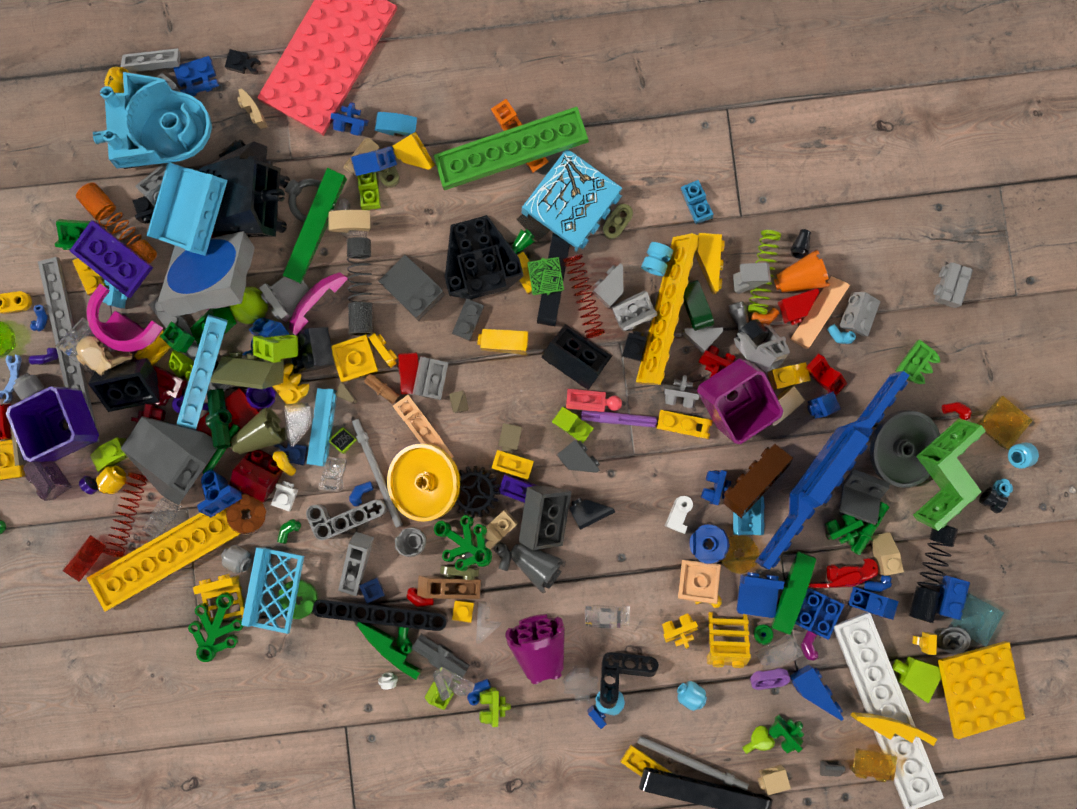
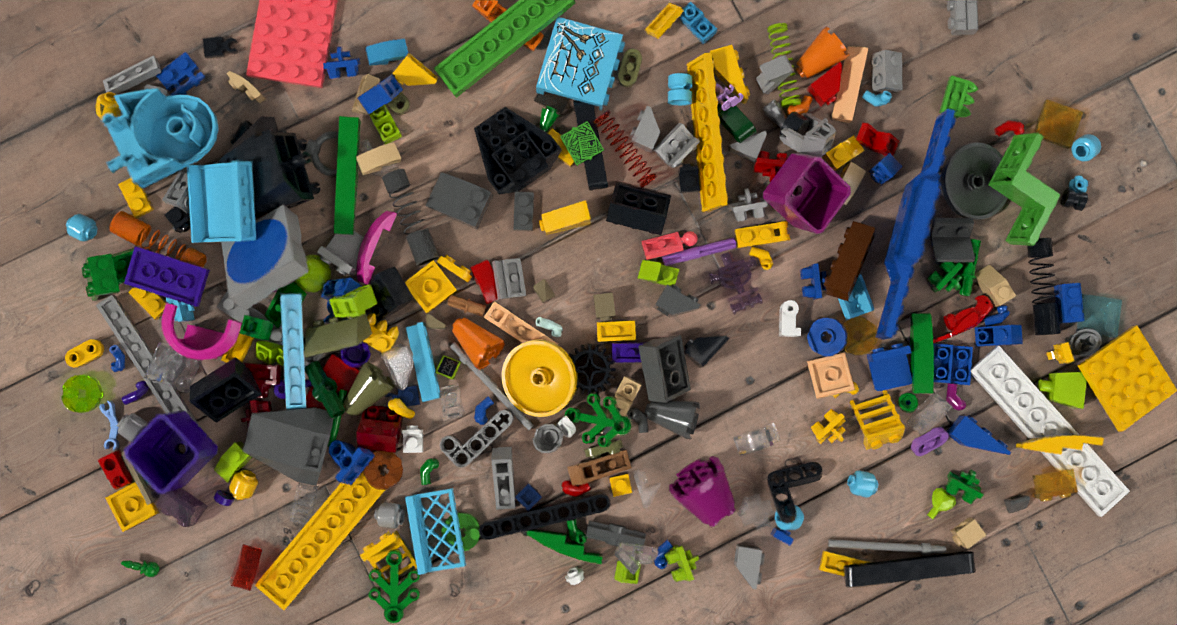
camera: 20 degrees left, 0 degrees up
(51, 184) = (81, 227): none -> medium azure head
(52, 236) = (100, 276): none -> green bracket
(98, 357) = (188, 372): tan head -> none
(112, 177) = (135, 198): none -> yellow plate
(112, 552) = (270, 473): clear red piece -> none
(378, 427) = (477, 342): none -> orange cone
(432, 538) = (566, 426): none -> white tile
(453, 436) = (550, 325): none -> light aqua arm
(555, 729) = (748, 562): none -> light grey slope
(643, 441) = (729, 264): none -> clear purple piece
(666, 188) = (664, 20): none -> yellow plate
(677, 446) = (763, 256): none -> yellow arm
(696, 278) = (723, 94): none -> lavender piece
(801, 245) = (809, 27): black cone -> none

